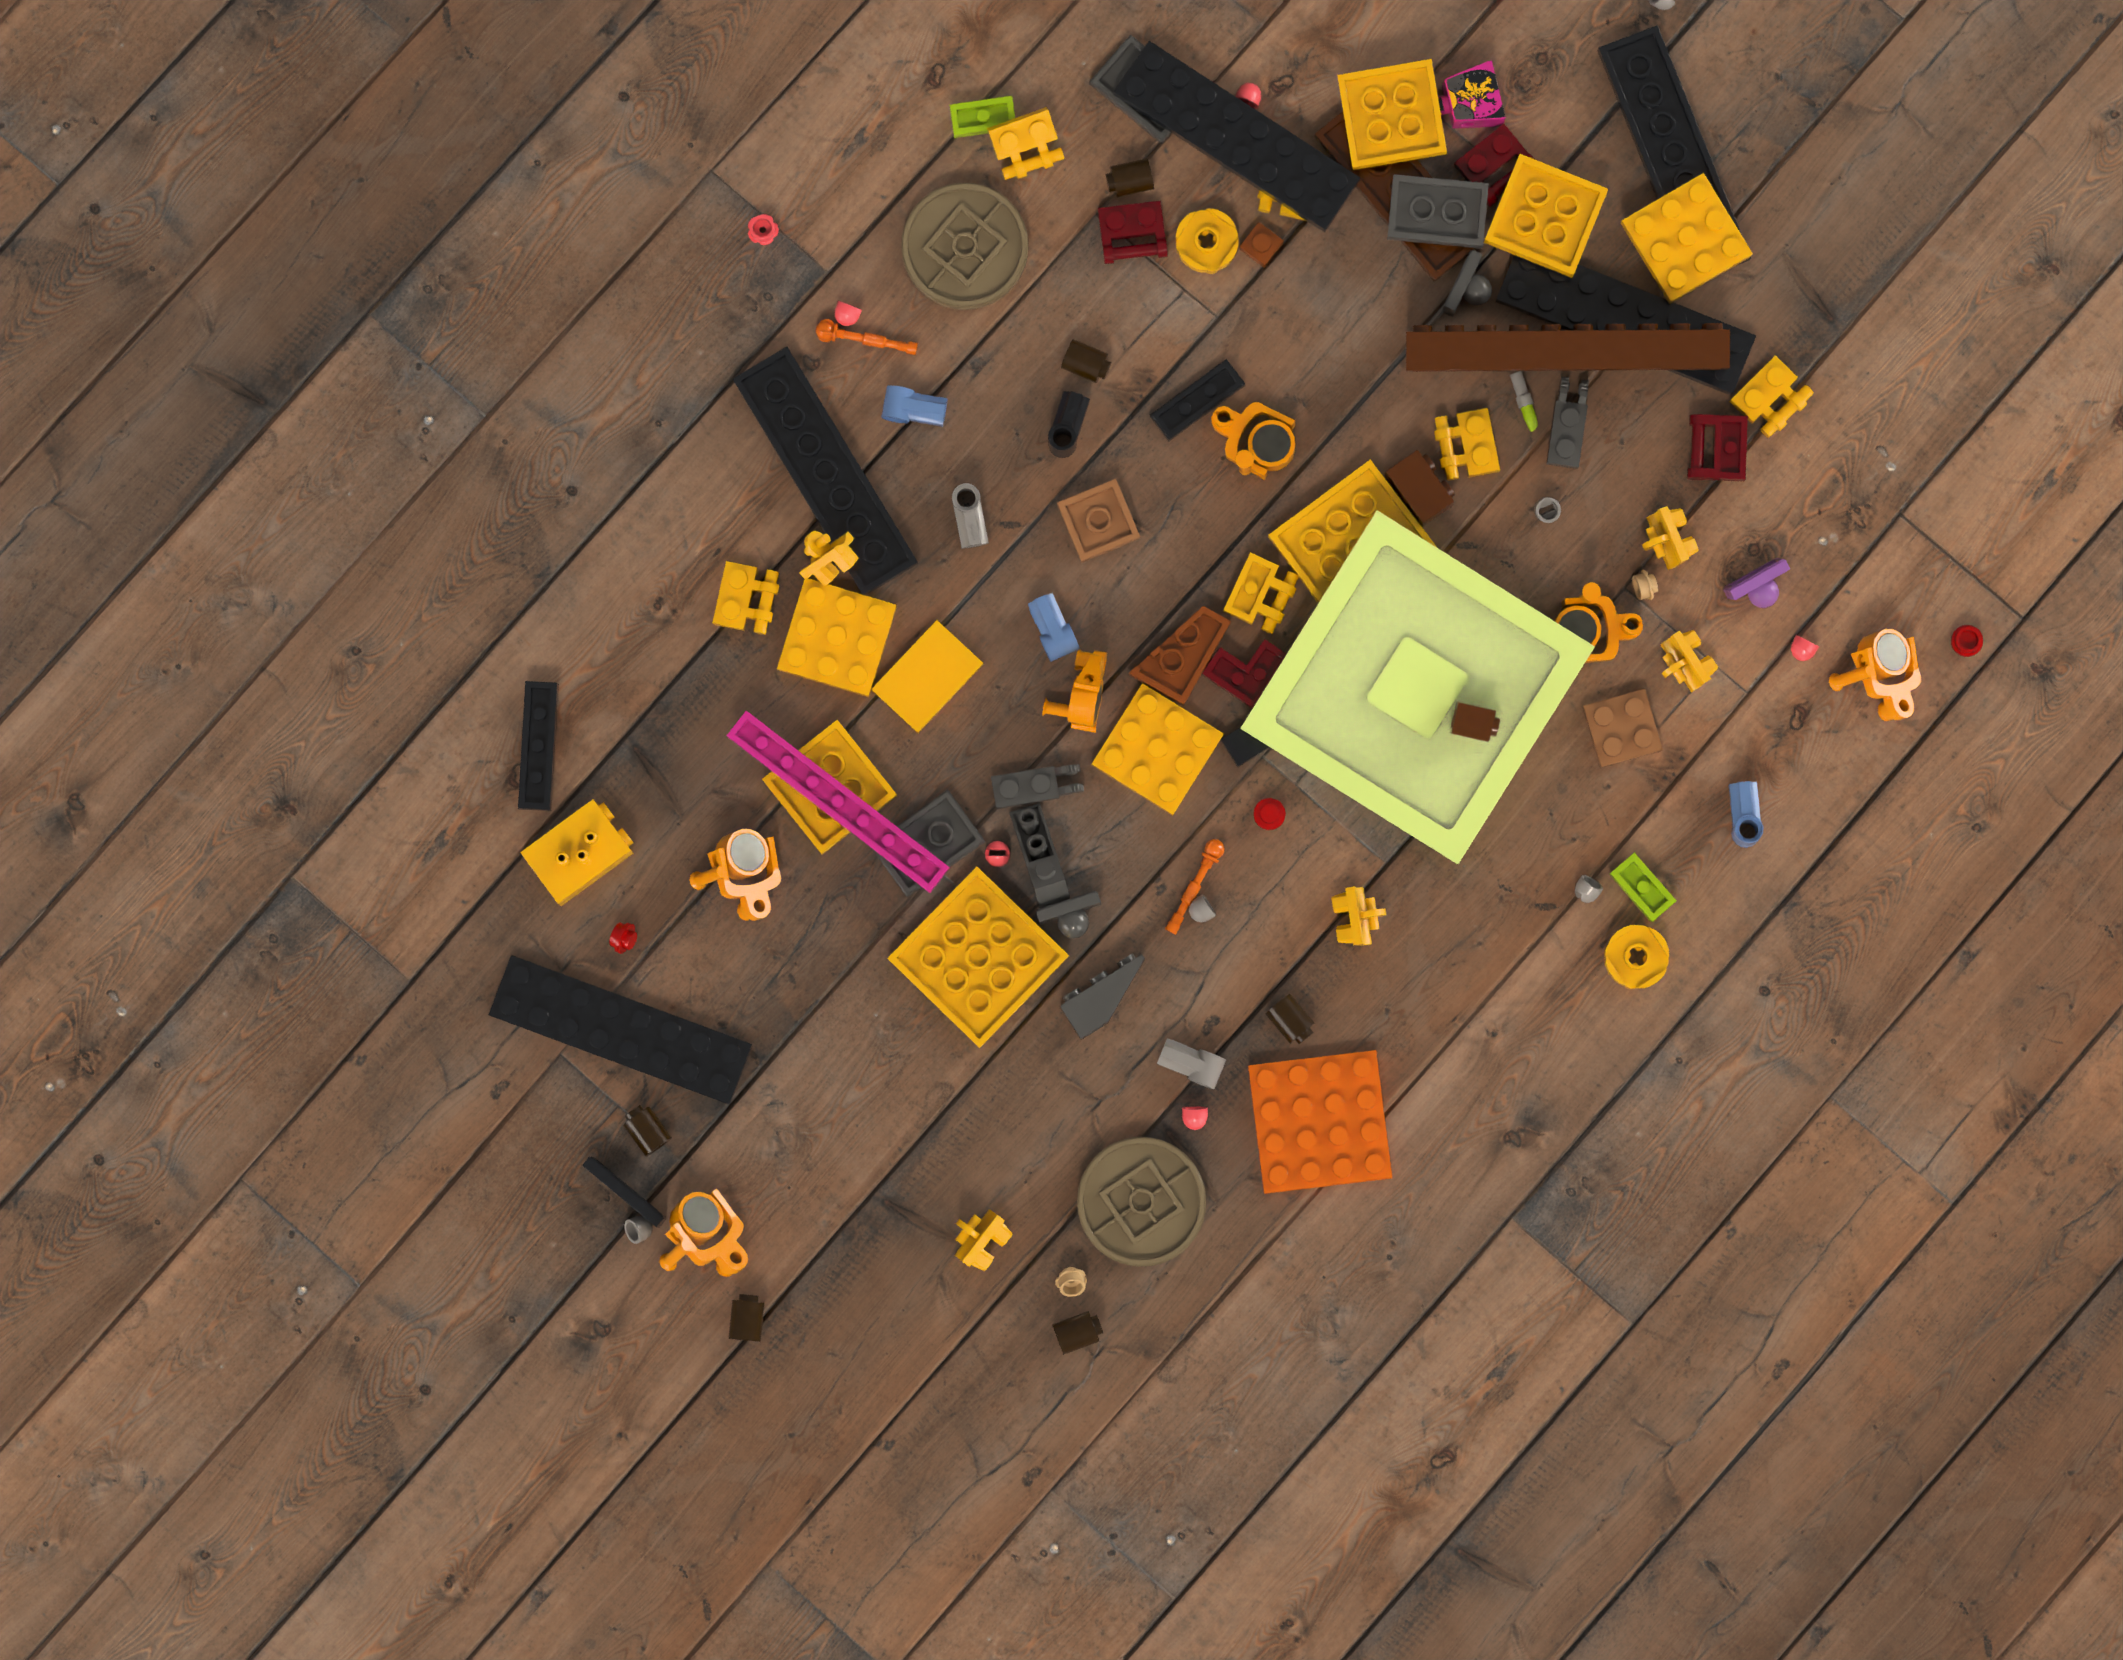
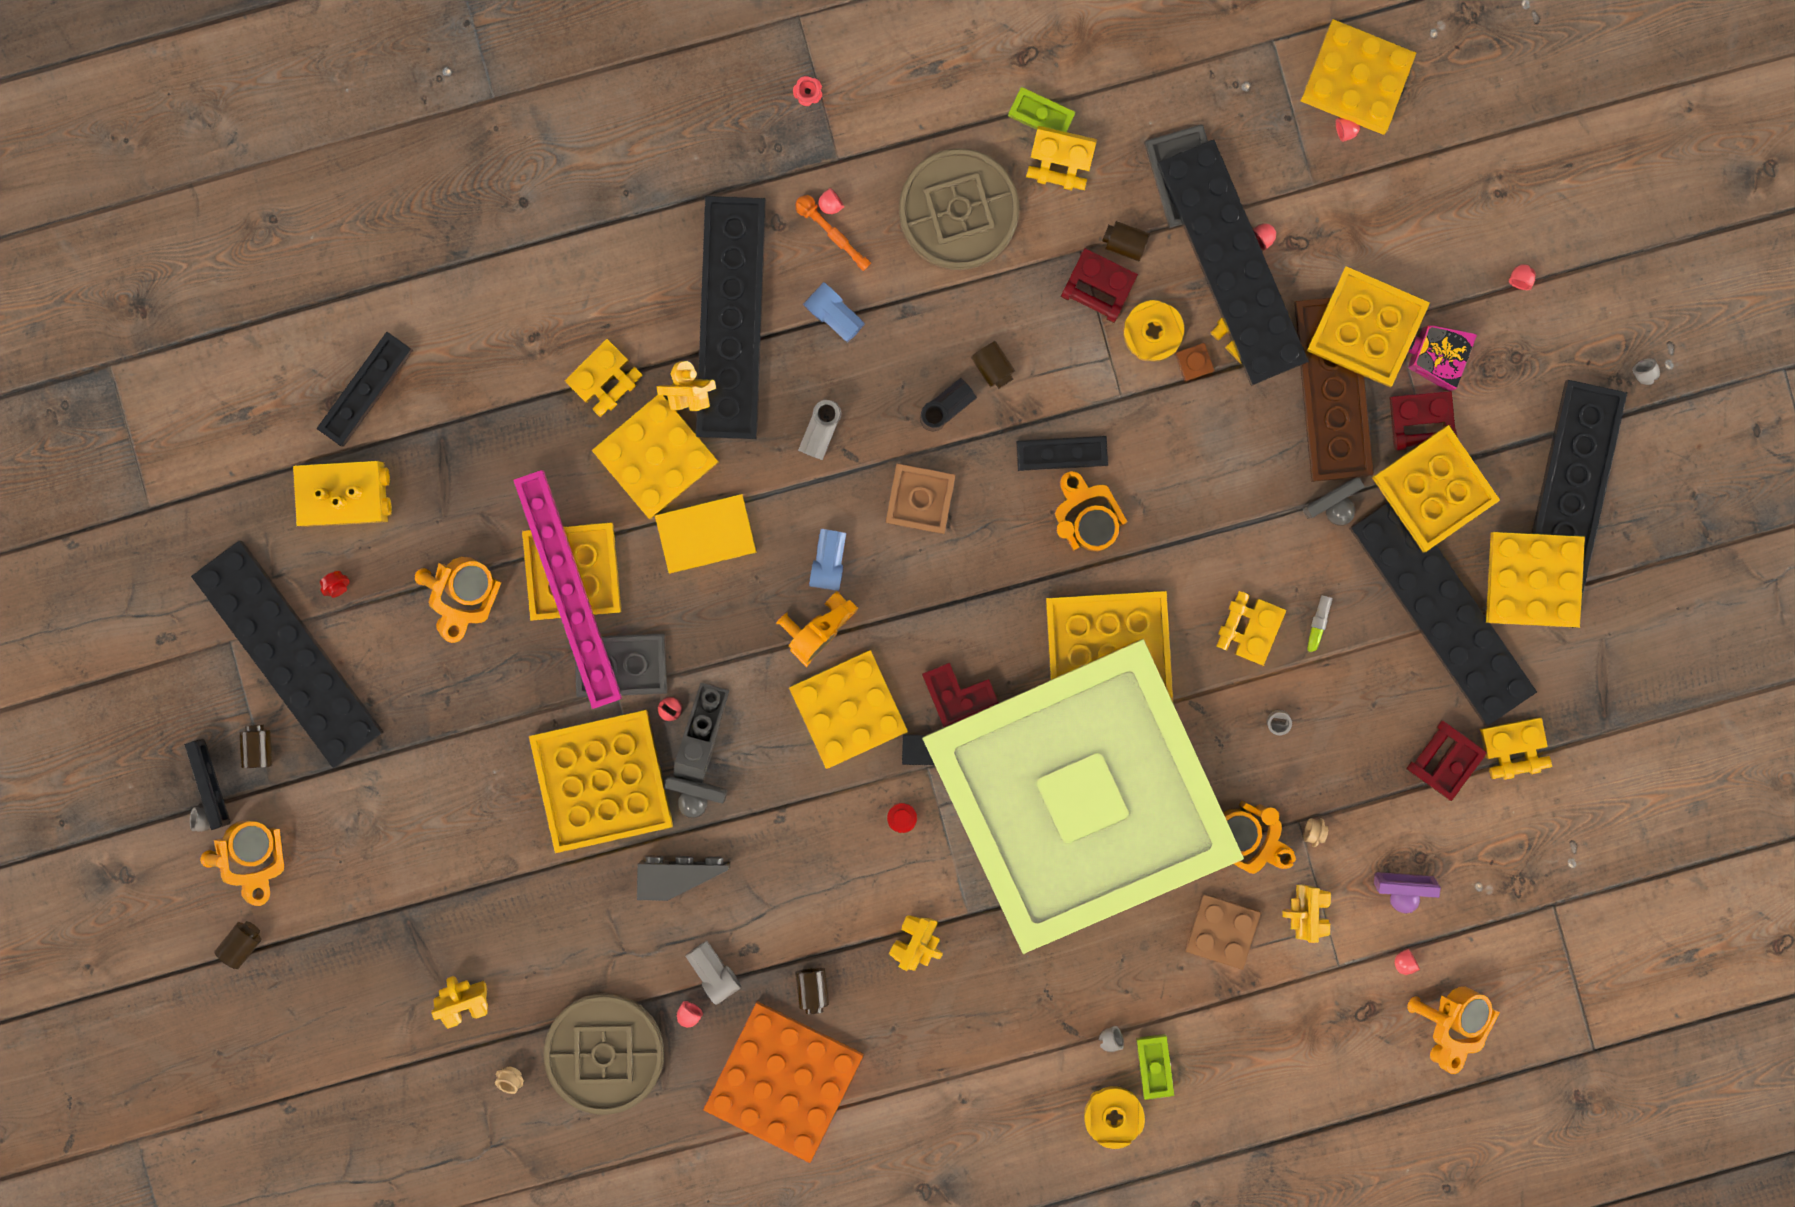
camera: 30 degrees right, 5 degrees up
(1033, 786) = (732, 674): dark grey hinge -> none
(1077, 1332) = (488, 1122): dark brown brick -> none
(1184, 656) = (916, 650): dark orange wing -> none
(1201, 909) = (800, 858): light grey hinge -> none
(1213, 850) = (839, 818): orange piece -> none
(1251, 589) = (1006, 631): yellow plate -> none
(1420, 488) = (1190, 639): reddish brown brick -> none
(1437, 211) = (1352, 429): dark grey plate -> none
(1474, 722) = (1108, 857): reddish brown brick -> none
(1568, 350) = (1382, 611): reddish brown brick -> none
(1568, 427) = (1340, 666): dark grey hinge -> none
(1666, 538) = (1357, 807): yellow hips -> none
(1745, 810) = (1276, 1059): medium blue piece -> none
(1967, 640) = (1538, 1040): red plate -> none

